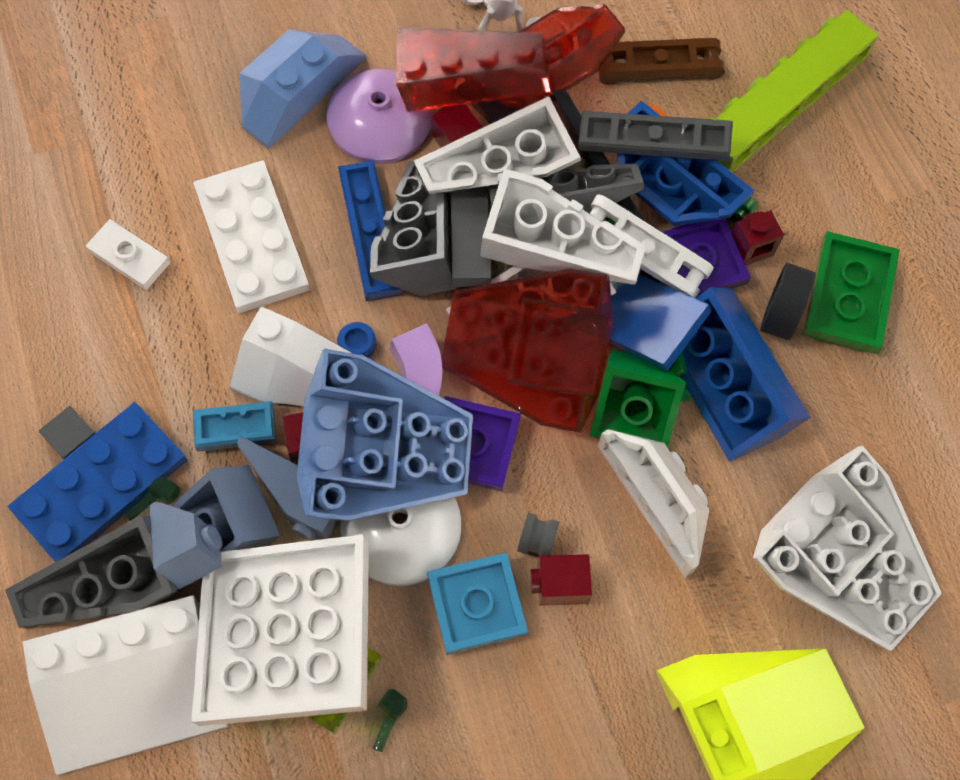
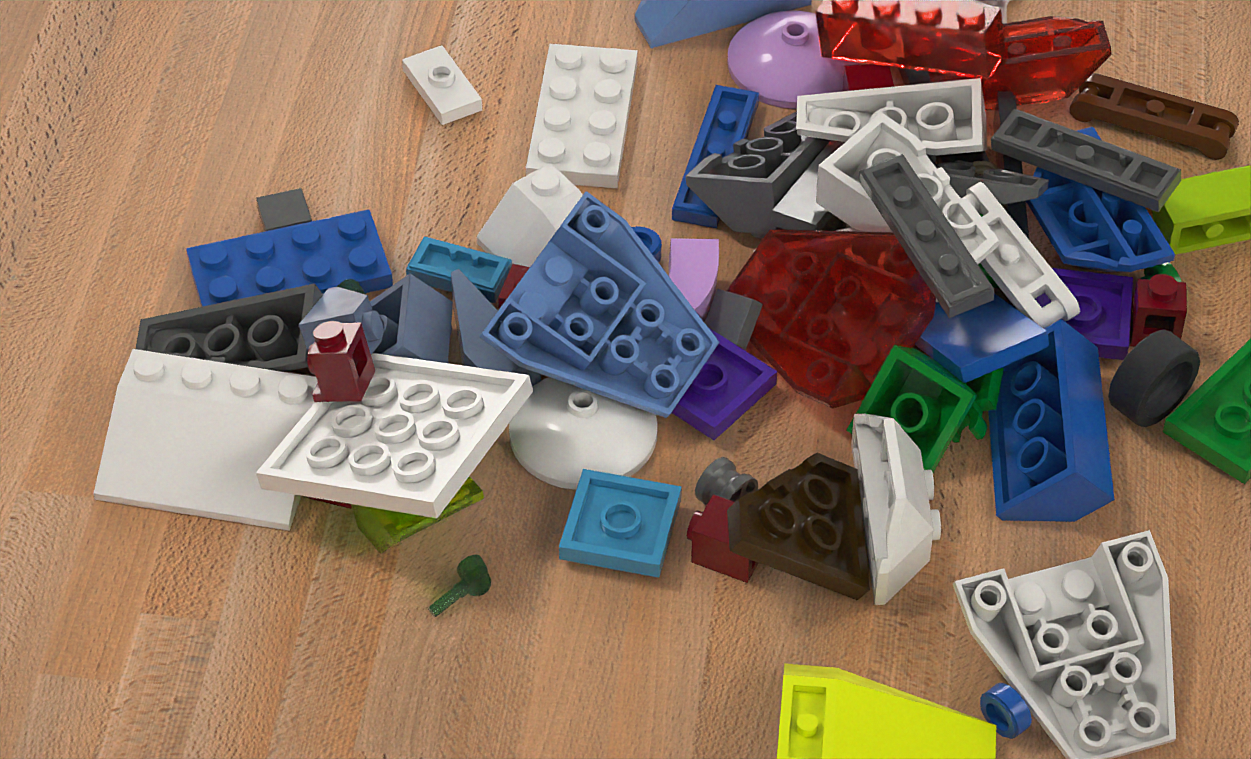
camera: 30 degrees right, 20 degrees down
(199, 589) = (340, 362): none -> dark red brick
(464, 380) = (733, 317): none -> dark grey tile
(596, 270) = (926, 236): none -> dark grey tile
(616, 548) = (806, 526): none -> dark brown plate
(827, 635) = (1006, 710): none -> blue tile

